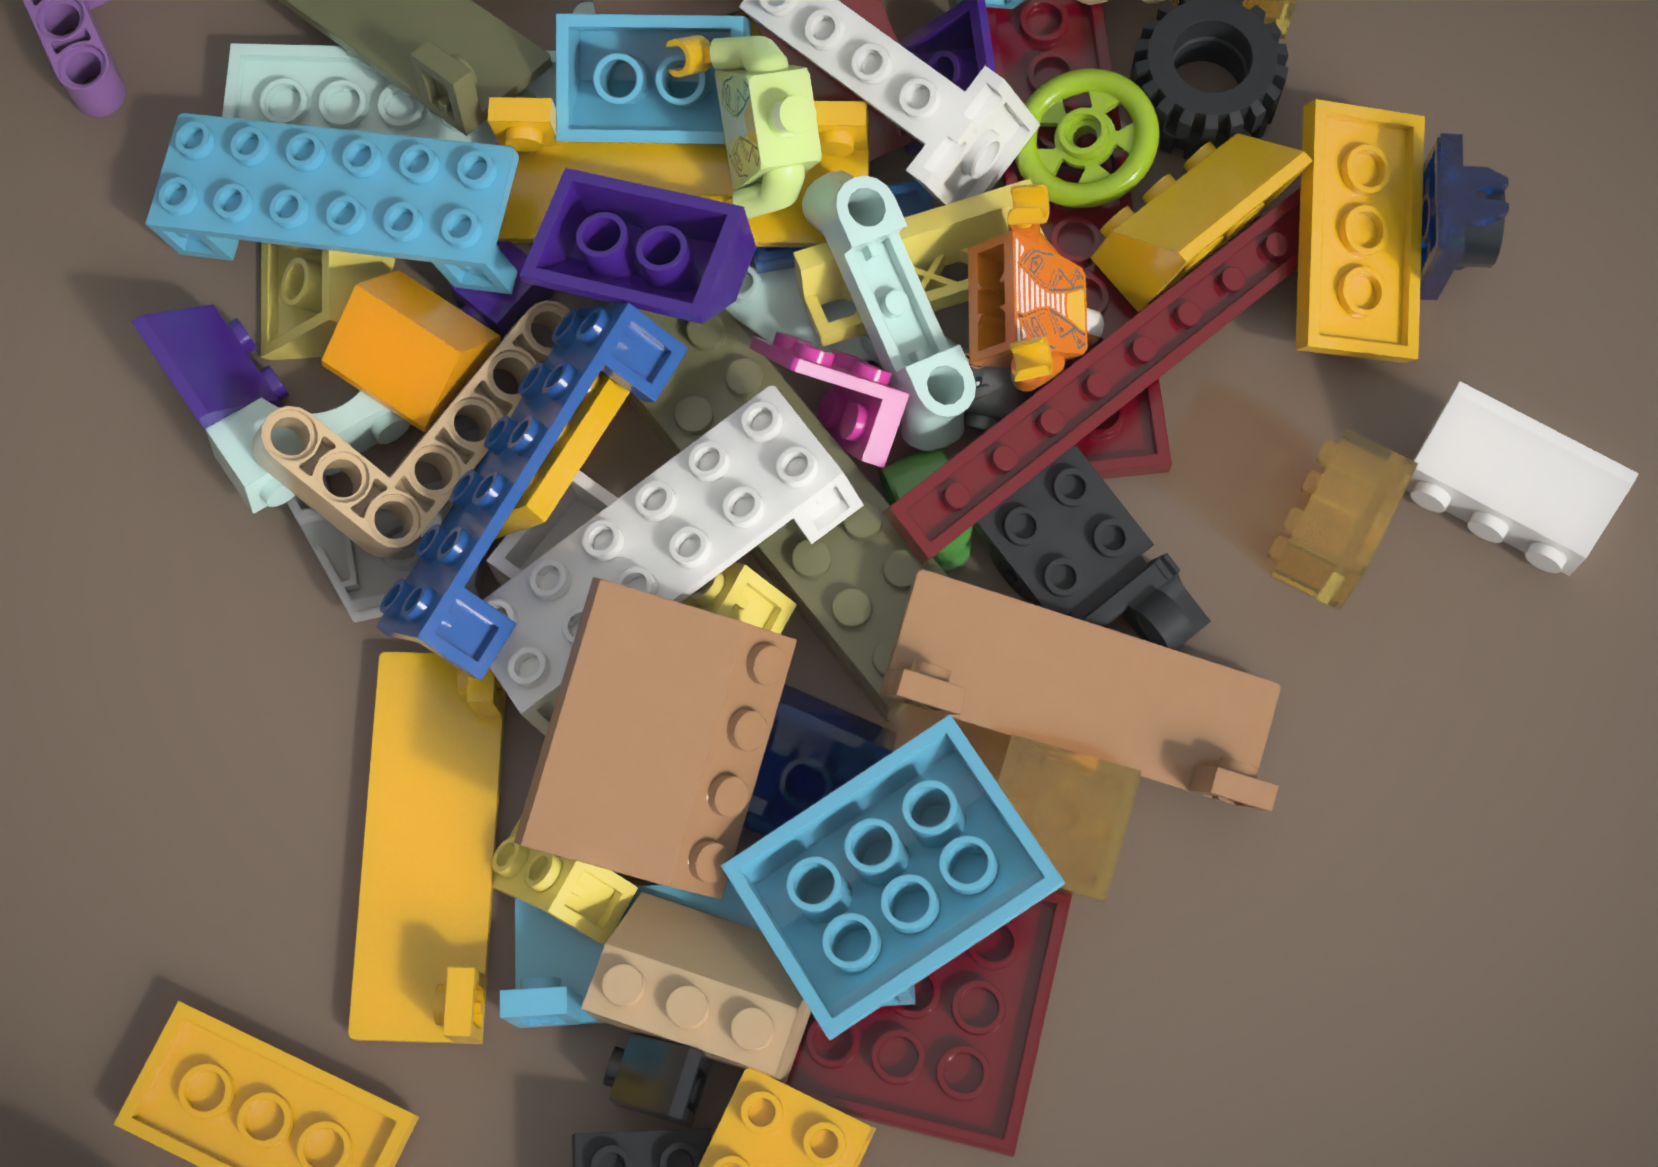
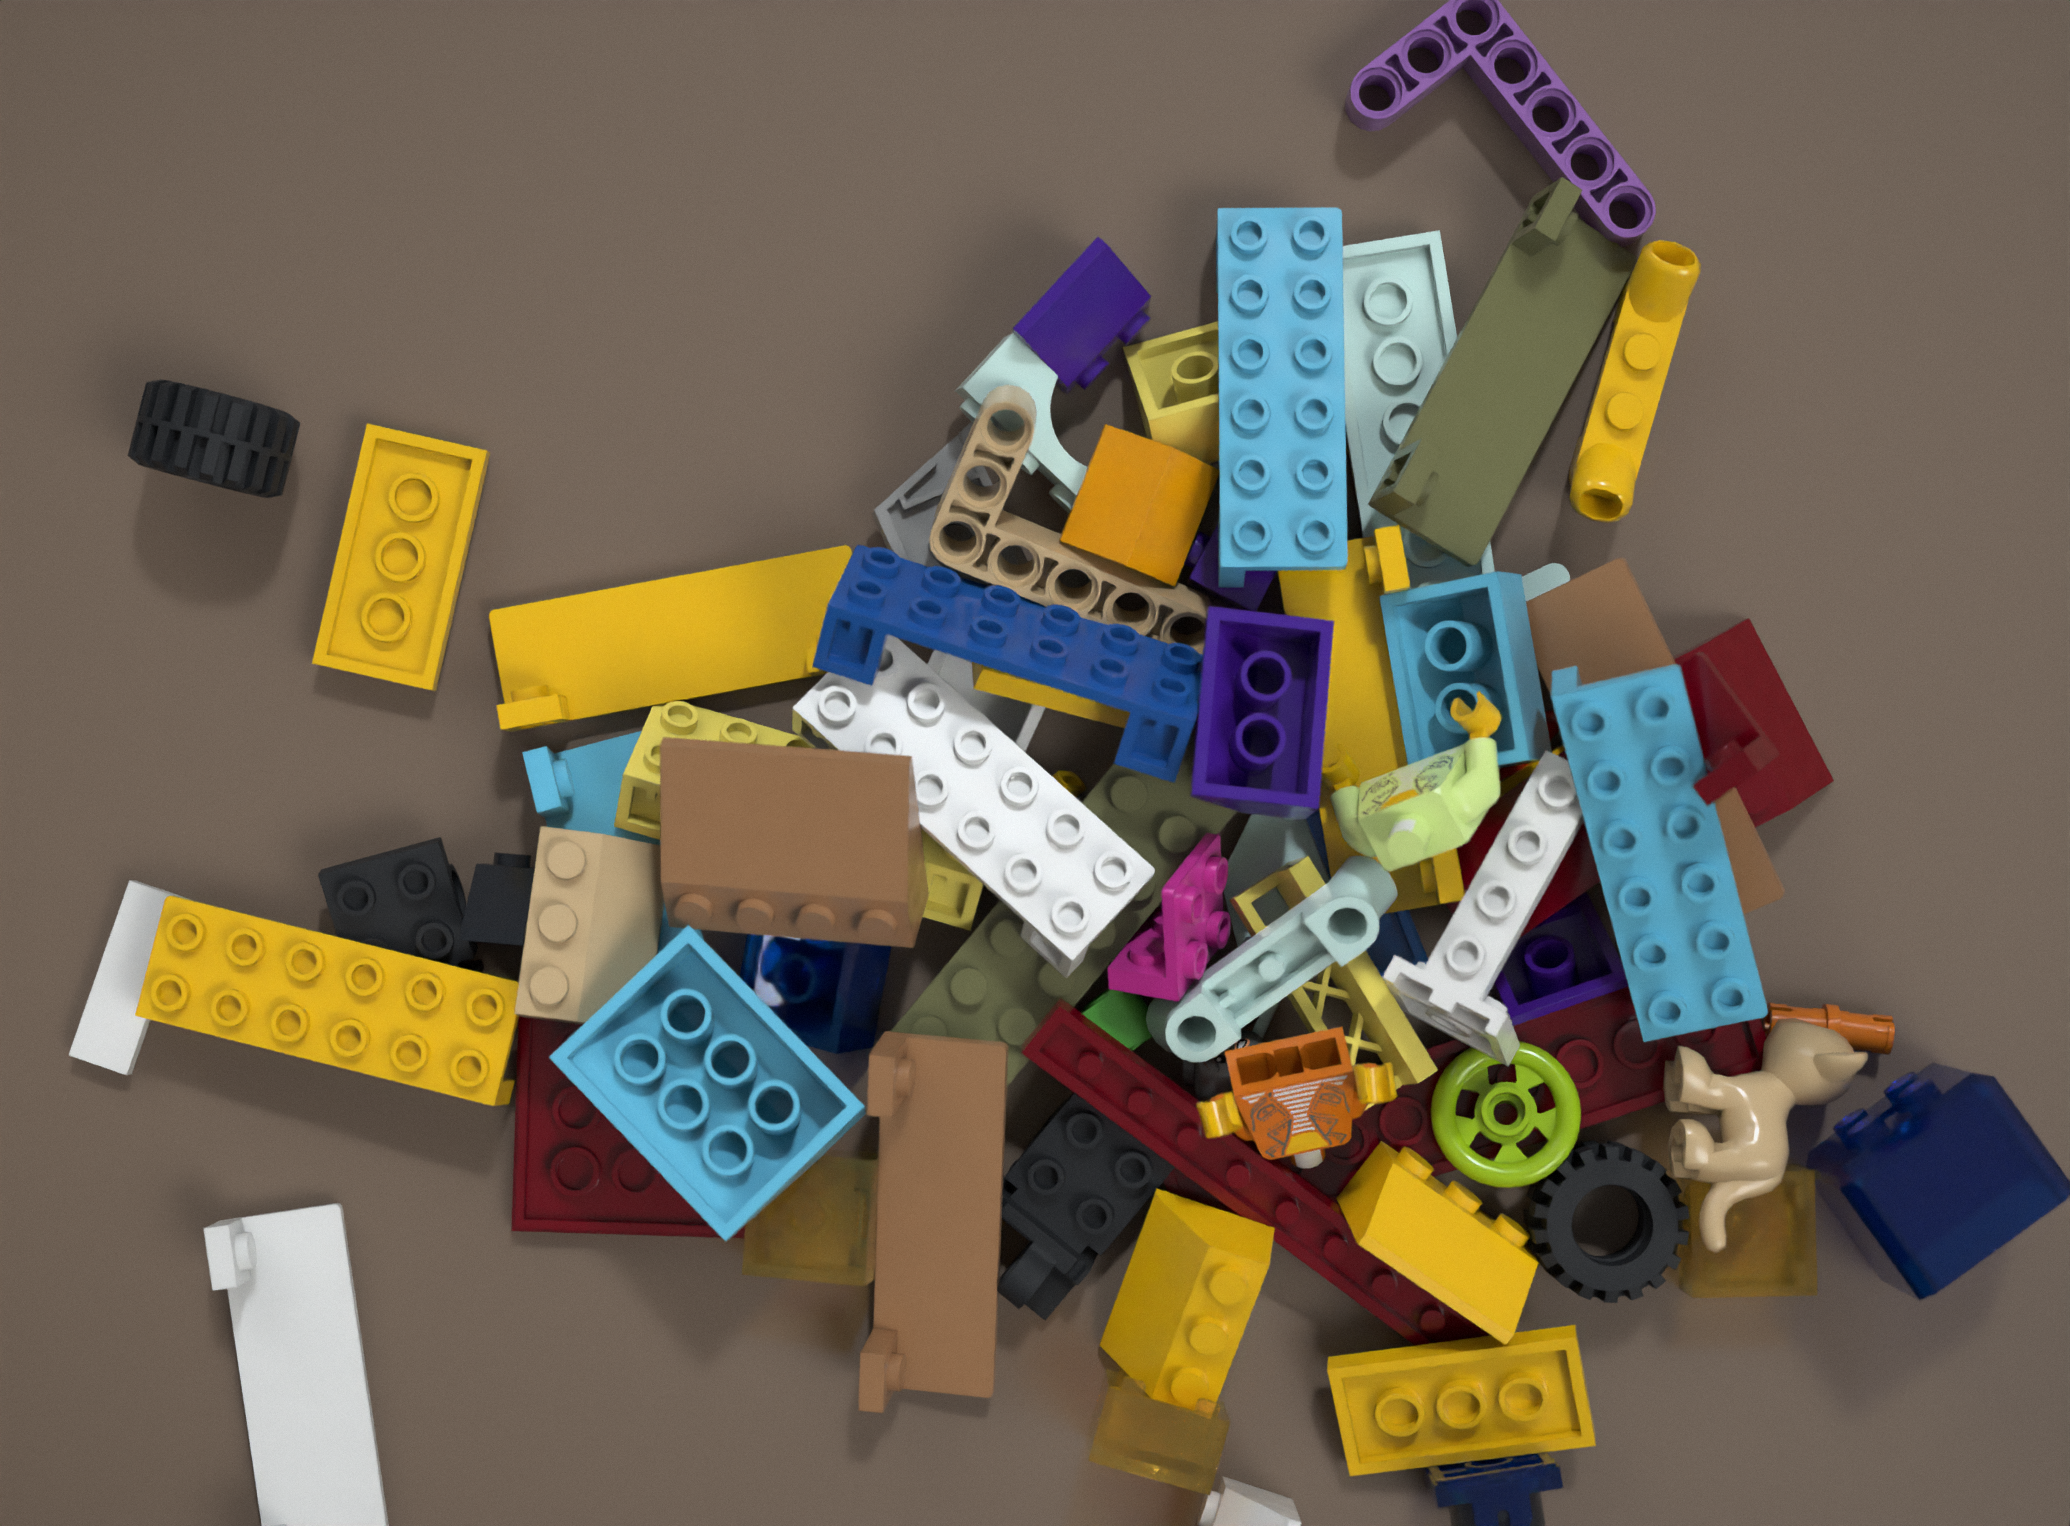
camera: 70 degrees right, 15 degrees up
(1212, 462) = (1186, 1298): none -> yellow slope

